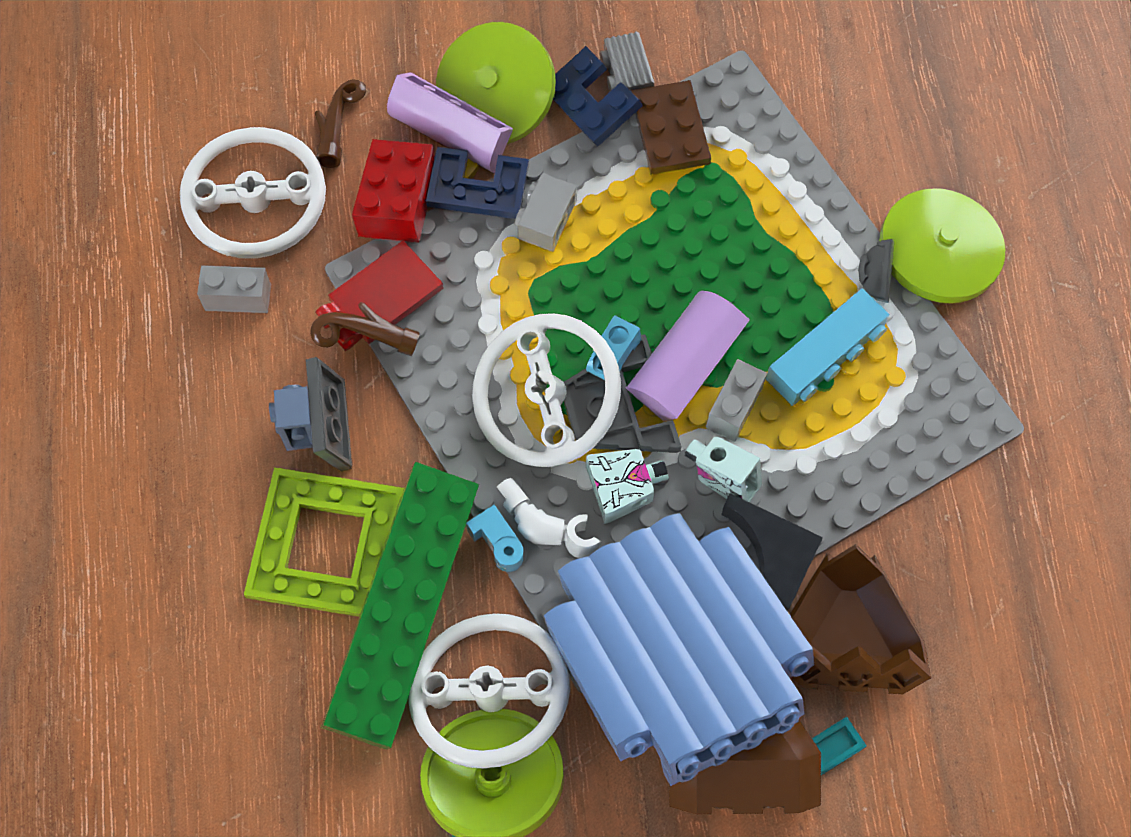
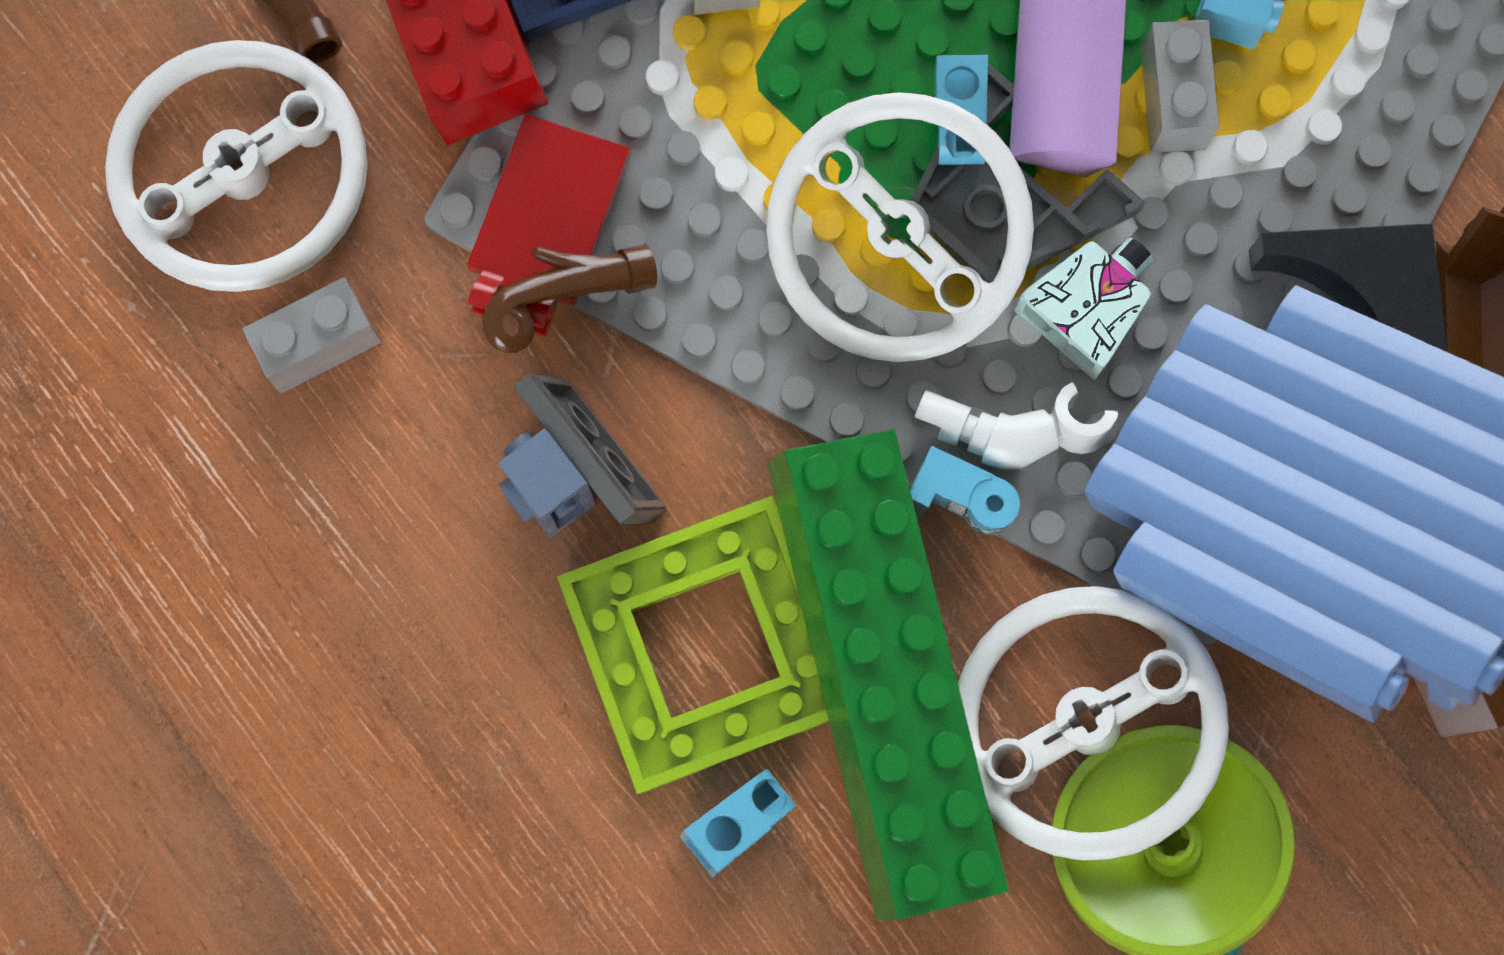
camera: 30 degrees left, 10 degrees up
(284, 638) = (737, 822): none -> medium azure leg
(726, 468) = (1230, 197): light aqua torso -> none

